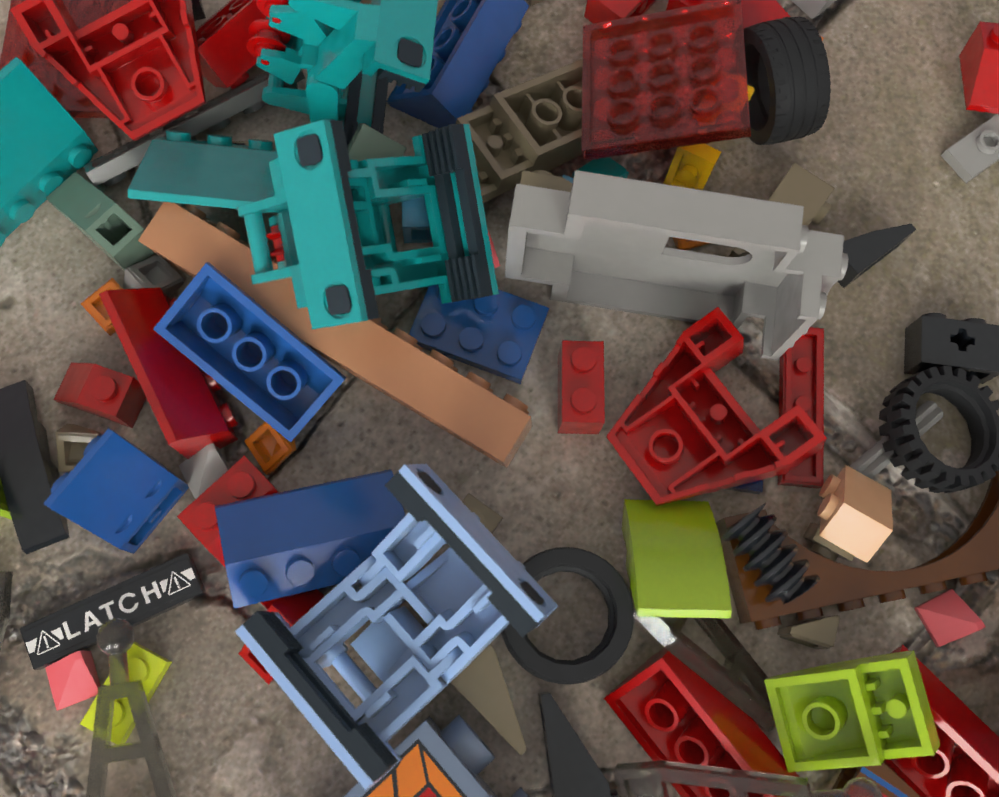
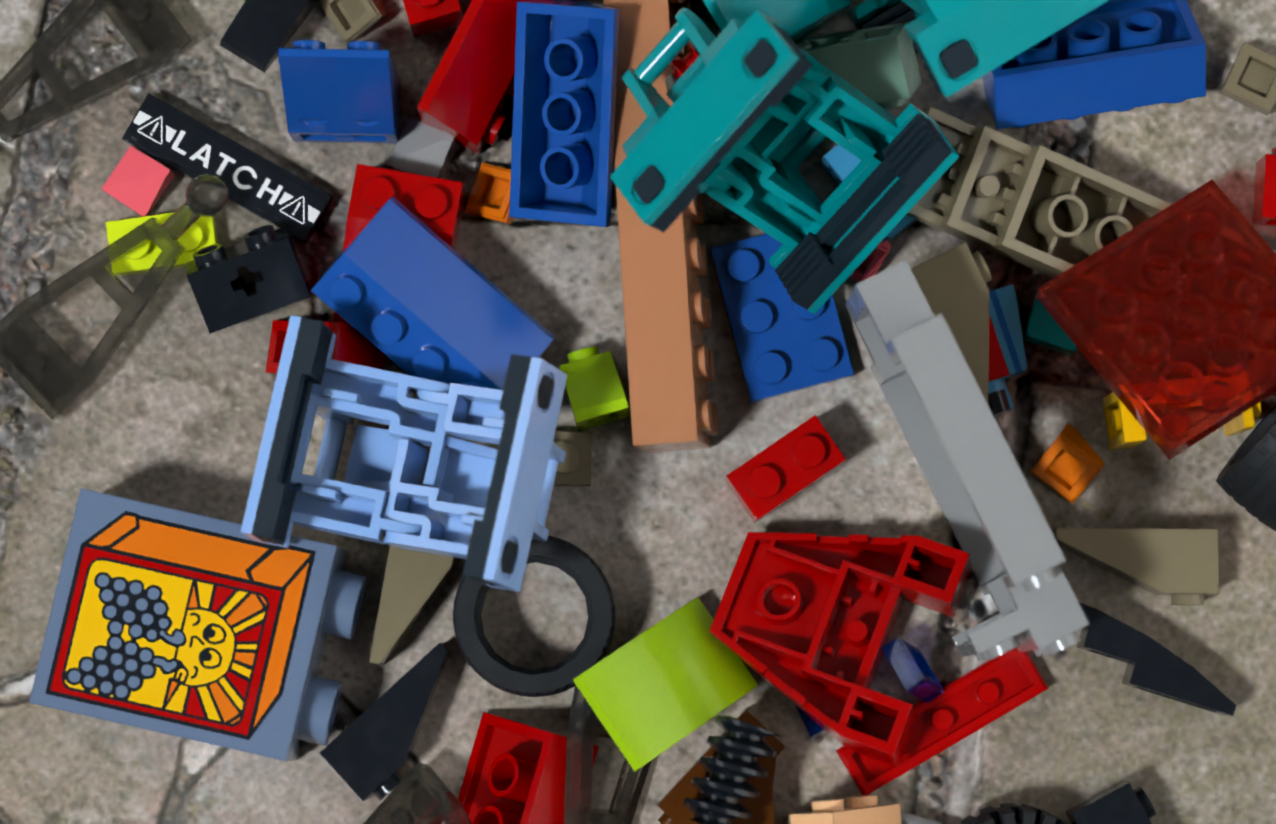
camera: 60 degrees right, 10 degrees up
(199, 675) = (227, 298): none -> black brick
(449, 461) = (594, 388): none -> lime slope
(763, 396) = (912, 669): none -> clear blue tile

